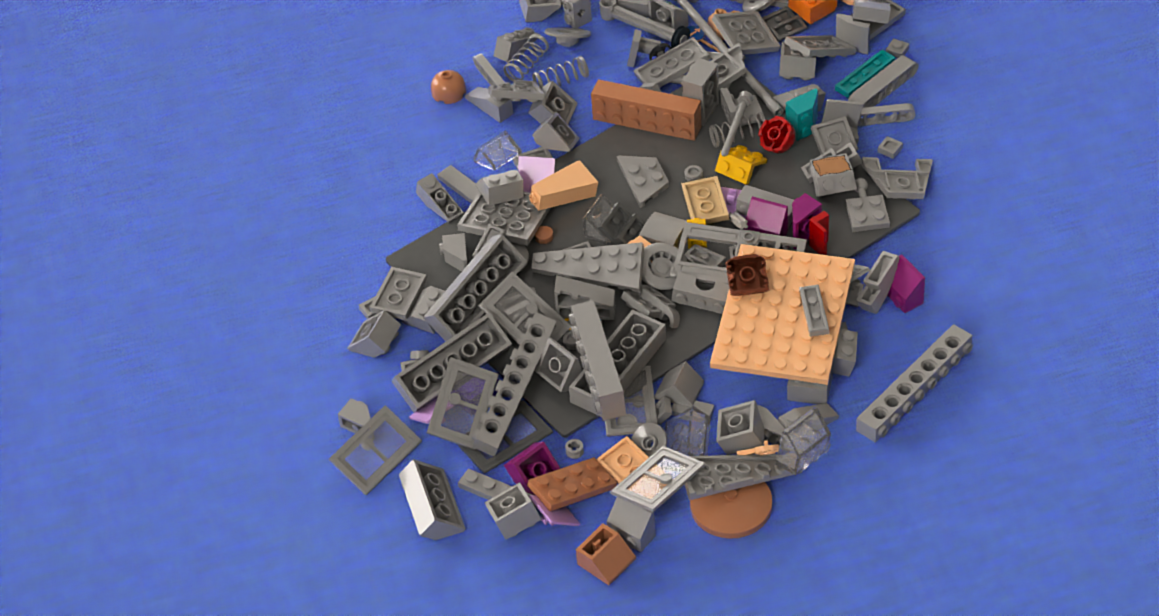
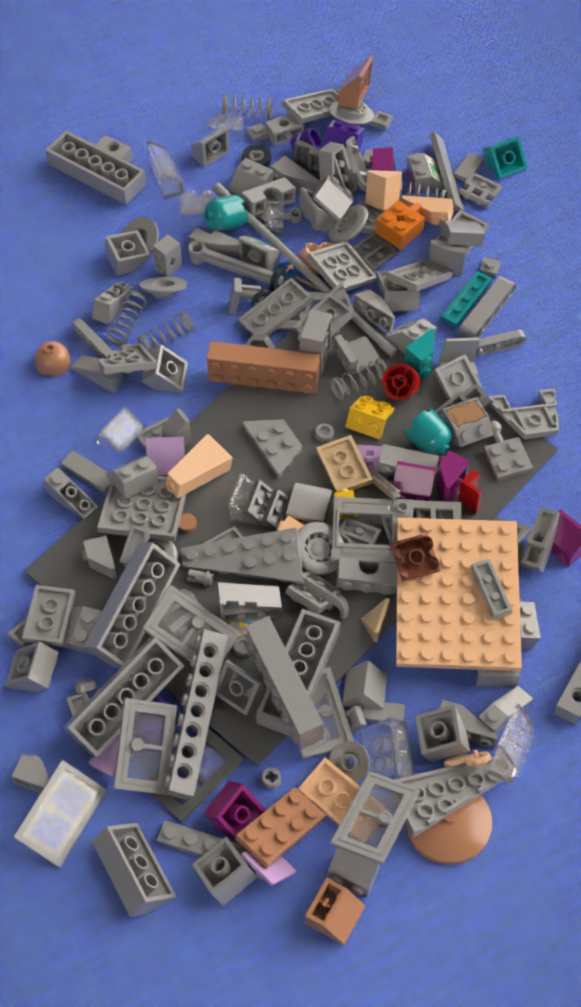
camera: 15 degrees left, 10 degrees up
(546, 279) = (201, 577): none -> light grey pin
(552, 149) = (177, 426): none -> light grey slope
(555, 134) = (174, 397): light grey slope -> none
(703, 332) = (375, 619): none -> tan slope
(744, 100) = (361, 347): light grey piece -> none
(767, 71) = (374, 309): none -> light grey slope
(792, 179) = (429, 433): none -> teal cylinder
(890, 147) = (510, 379): light grey plate -> none

